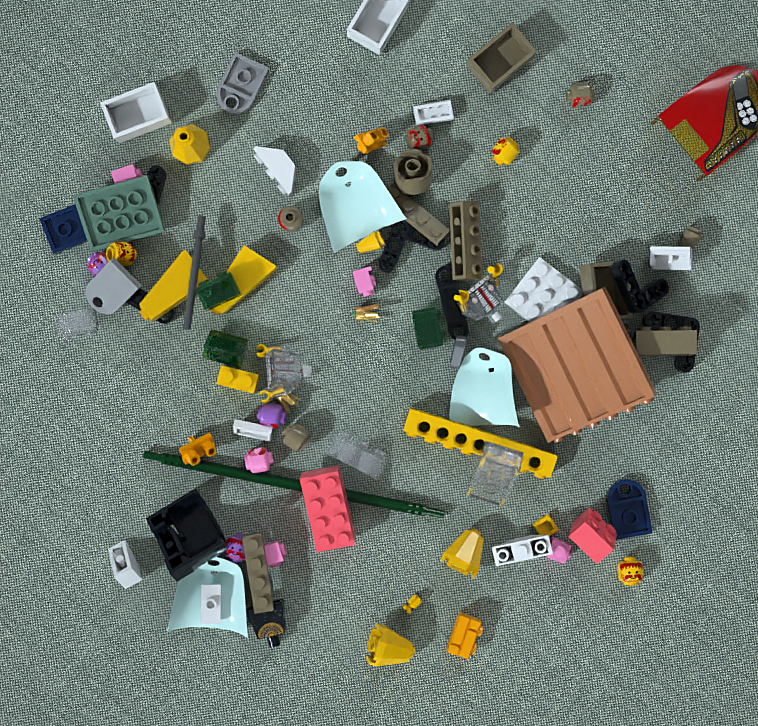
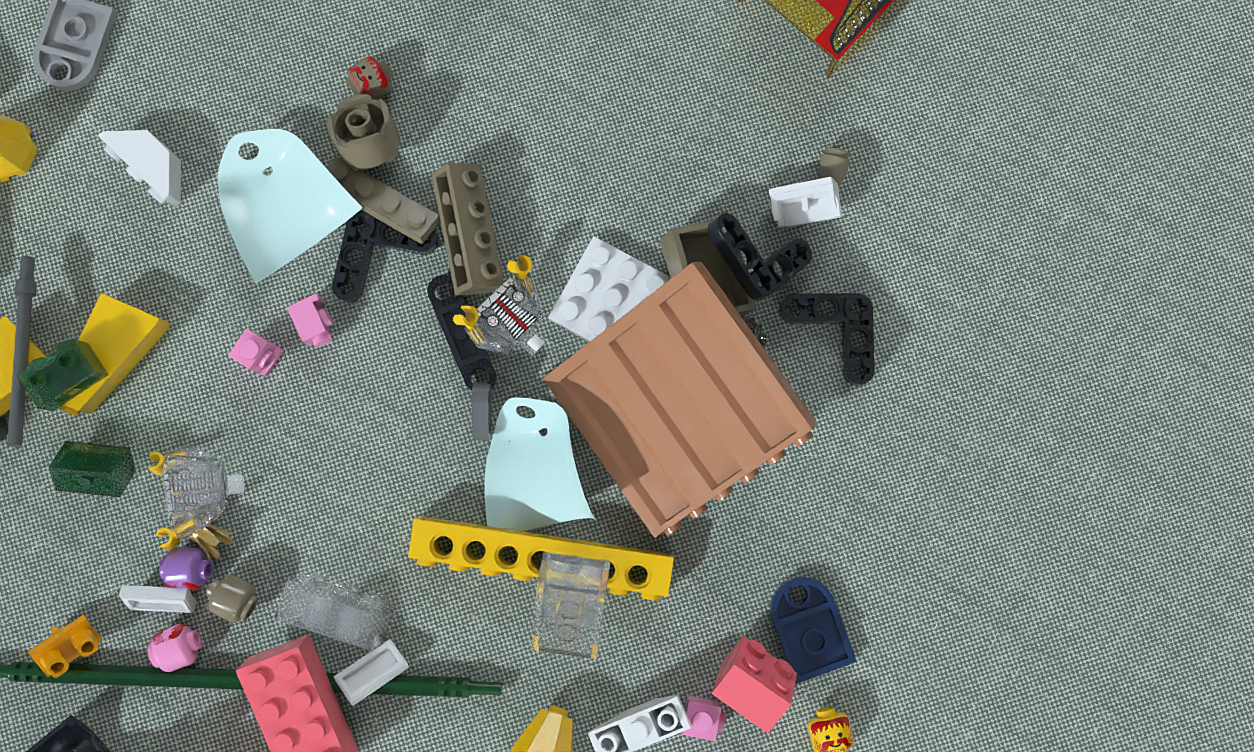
camera: 15 degrees left, 5 degrees down
(238, 379) = (122, 516): yellow brick -> none
(290, 225) = (176, 239): dark tan head -> none
(329, 295) = (256, 352): none -> bright pink brick
(361, 313) = (319, 374): pearl gold piece -> none
(371, 140) = (290, 93): light orange hips -> none
(371, 242) = (315, 256): yellow cone -> none
(371, 492) = (371, 672): none -> white tile
(427, 328) = (423, 380): clear green brick -> none
(433, 112) = (387, 36): white plate -> none
(505, 151) = (510, 77): yellow head -> none
(545, 525) = (676, 680): yellow tile -> none
(666, 341) = (819, 338): dark tan piece -> none

